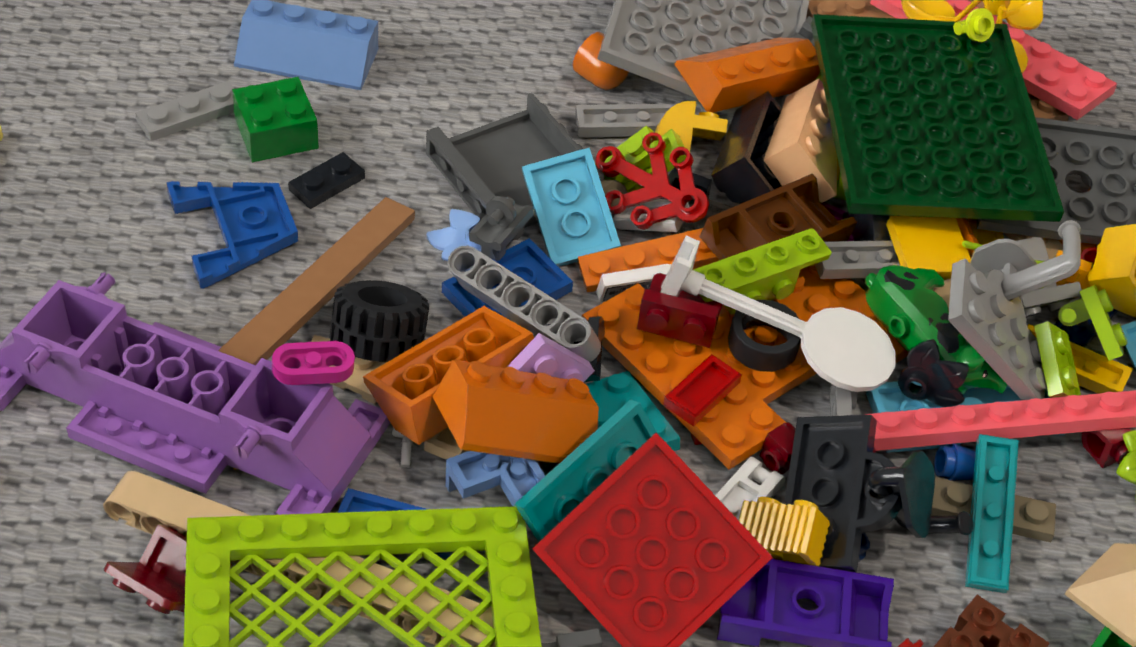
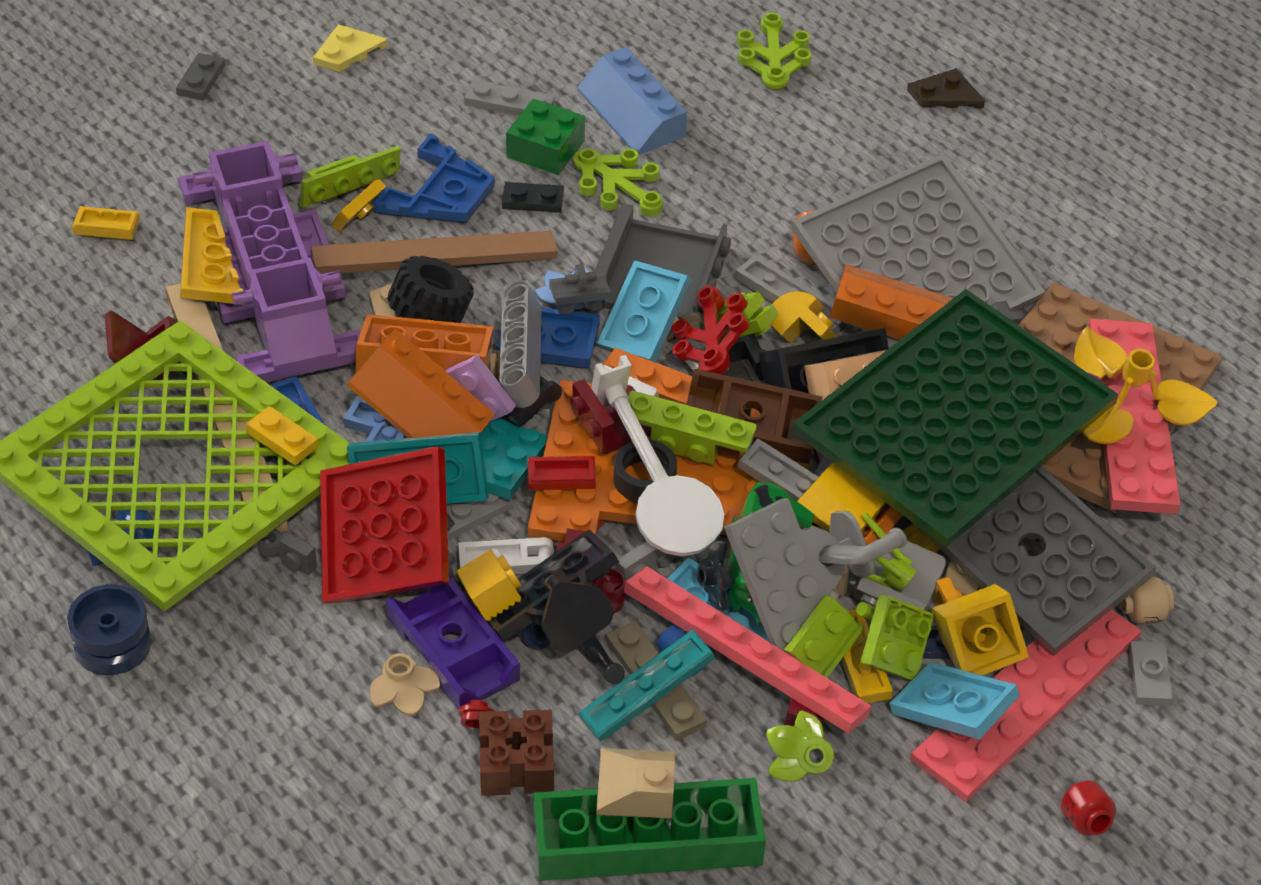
camera: 50 degrees right, 0 degrees up
(125, 442) = (206, 259): none -> yellow wing
(139, 270) = (347, 175): none -> lime bracket
(187, 291) = (359, 206): none -> yellow plate
(310, 362) = (327, 277): dark pink plate -> none
(377, 117) = (592, 161): none -> lime plant
(441, 548) = (282, 435): none -> yellow plate
(978, 25) = (1079, 375): neon yellow plate -> none

